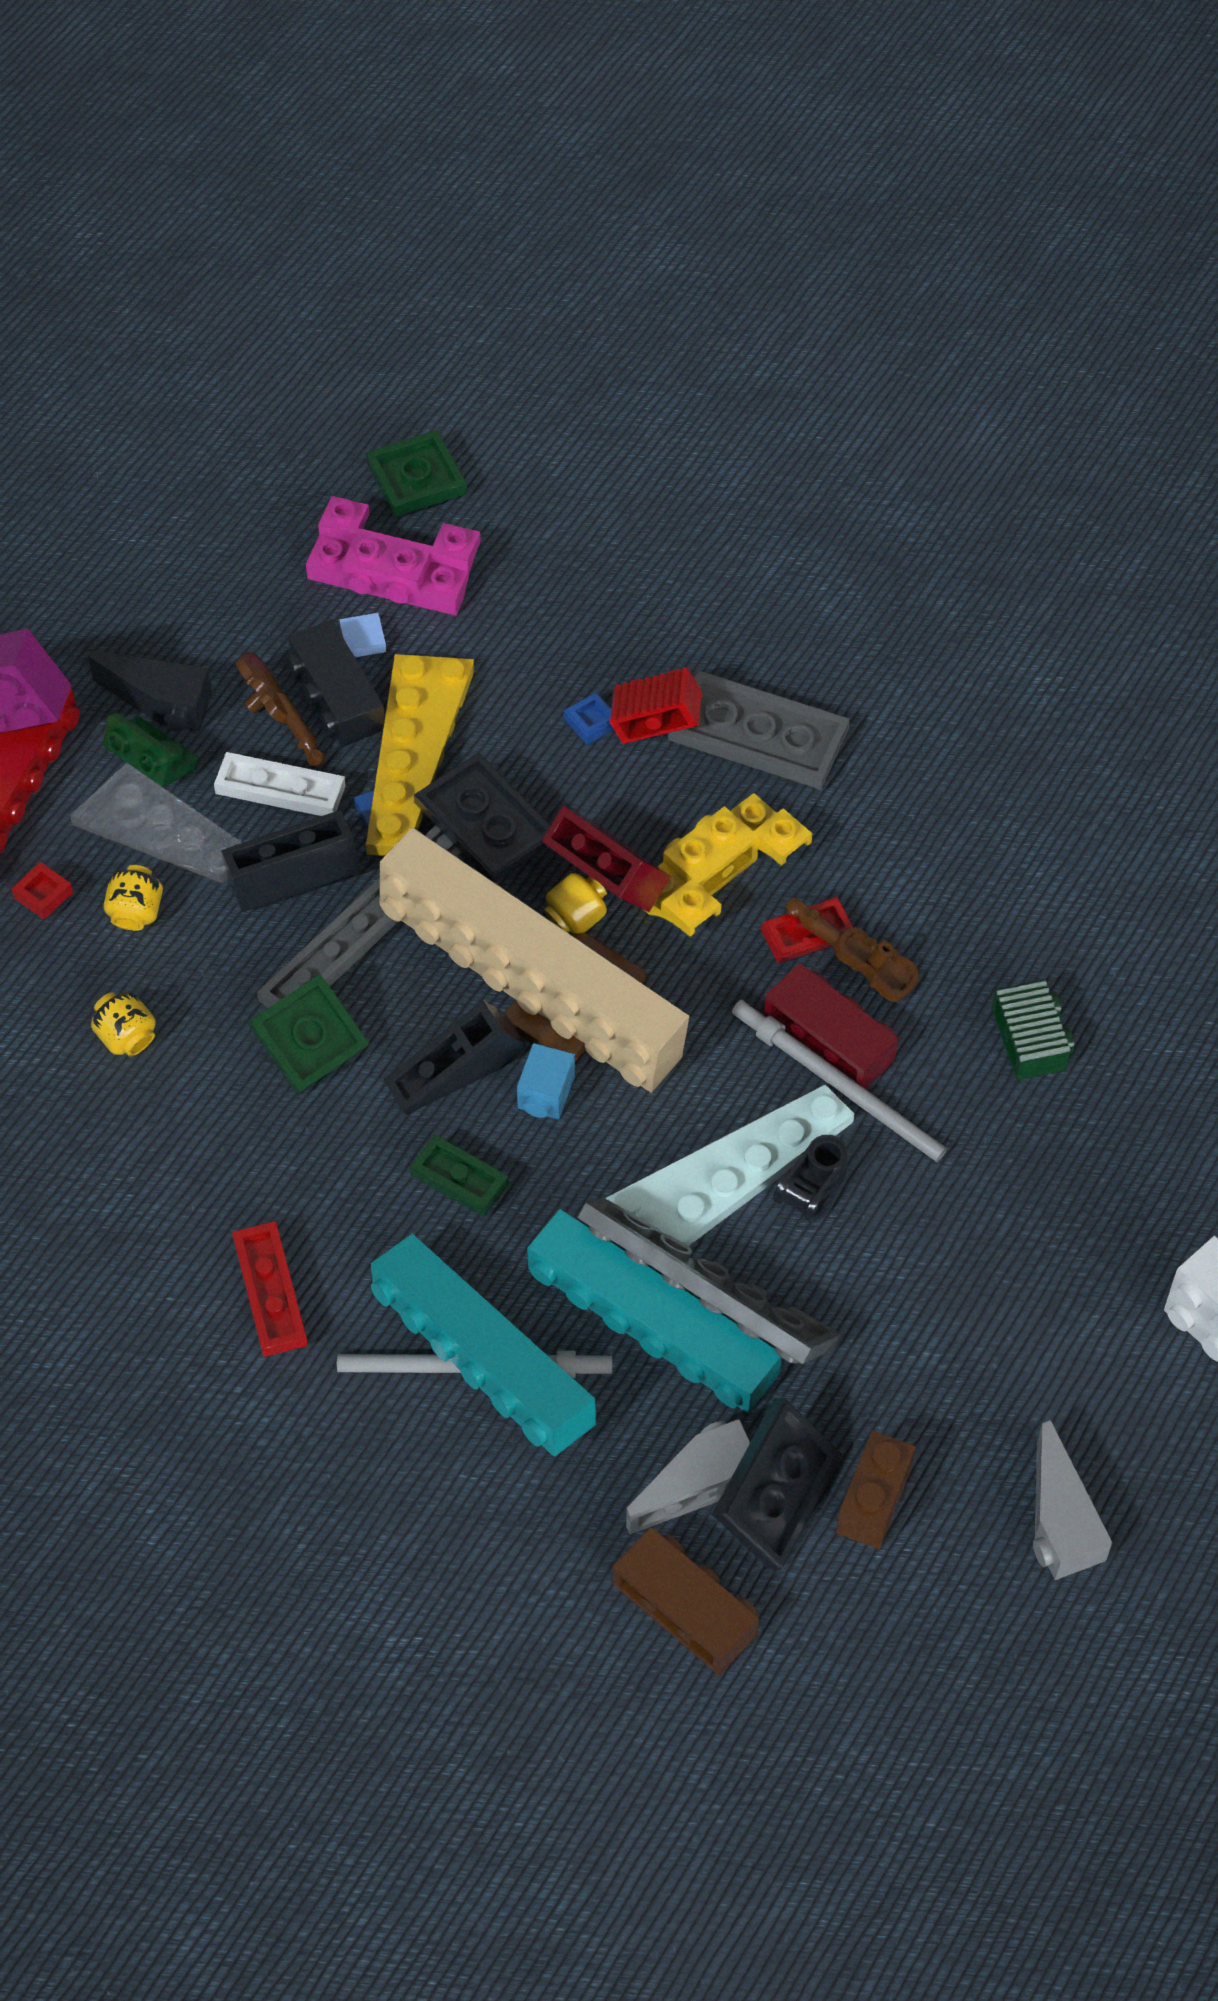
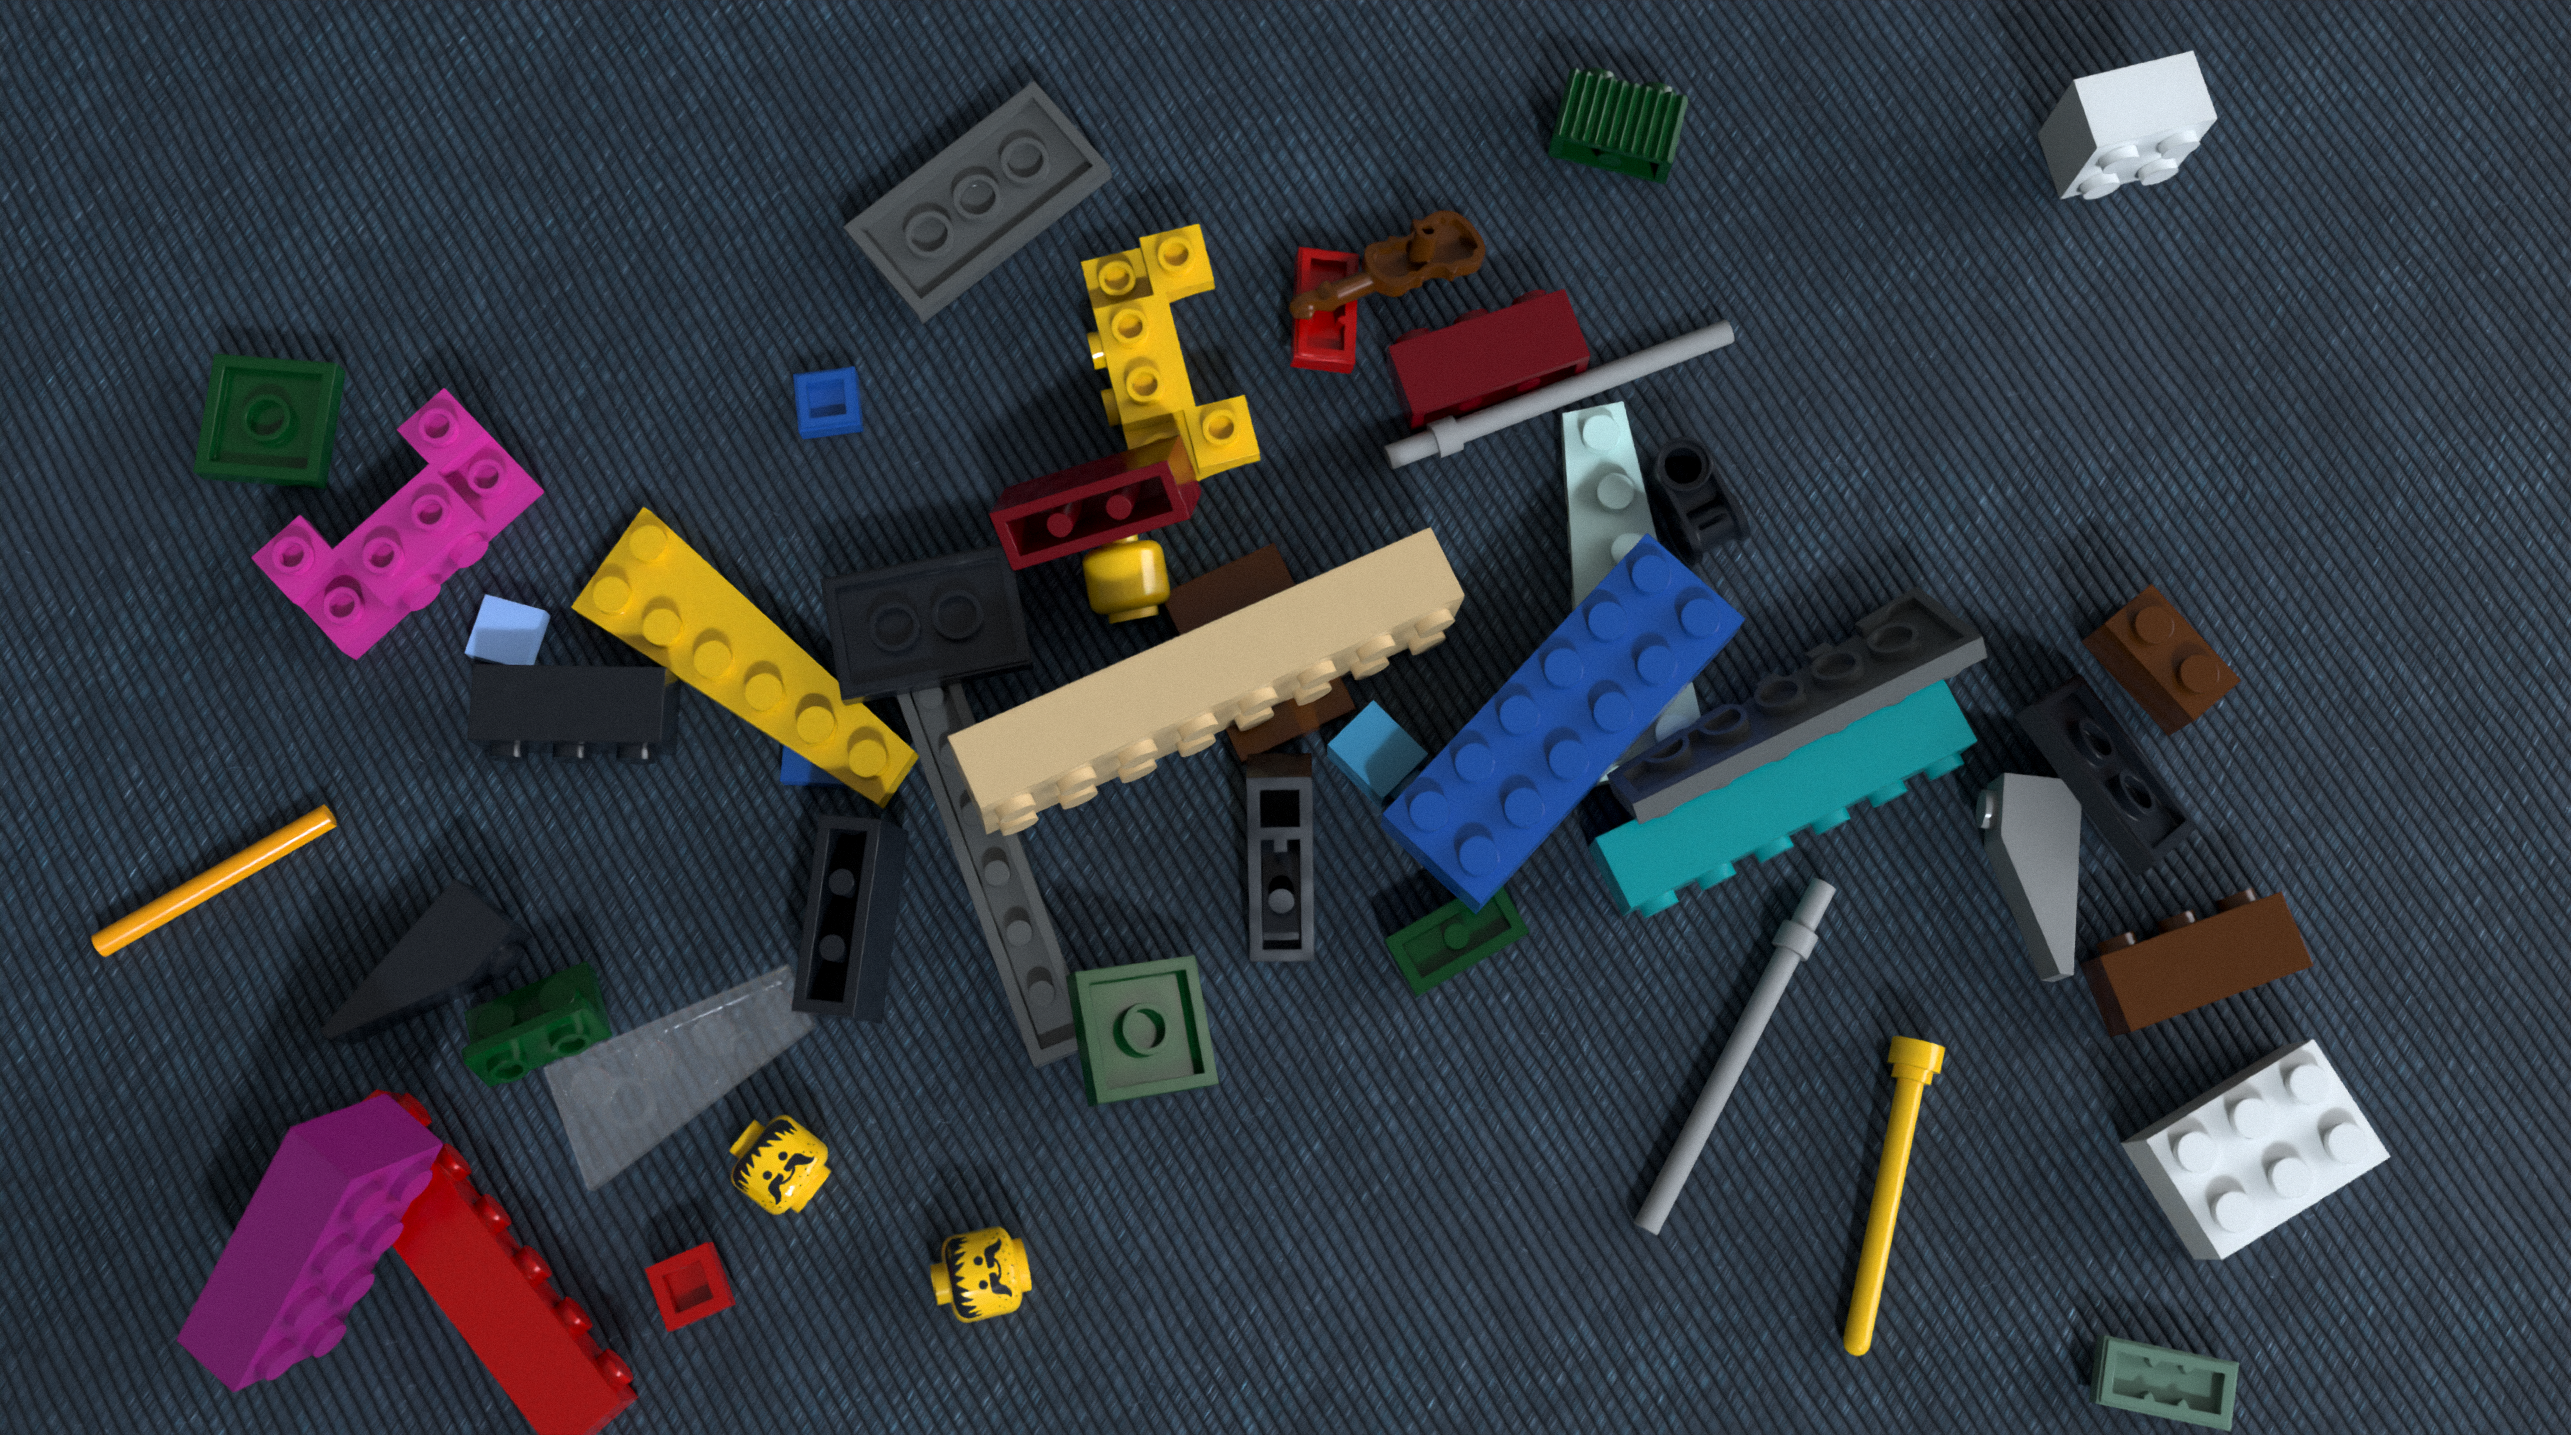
camera: 60 degrees left, 20 degrees up
(149, 575) = (213, 881): none -> light orange bar
(269, 1289) = (1498, 1267): red plate -> none
(277, 704) = (539, 811): reddish brown piece -> none
(279, 784) = (700, 872): white plate -> none
(400, 1702) = (2164, 1382): none -> sand green plate
(483, 1345) = (1742, 1036): teal brick -> none
(522, 1465) = (1914, 1067): none -> yellow piece
(580, 1685) = (2255, 1150): none -> white brick
(618, 1152) = (1561, 723): none -> blue brick
(655, 705) = (877, 309): red brick -> none
(1066, 1522) = (2282, 462): light grey slope -> none

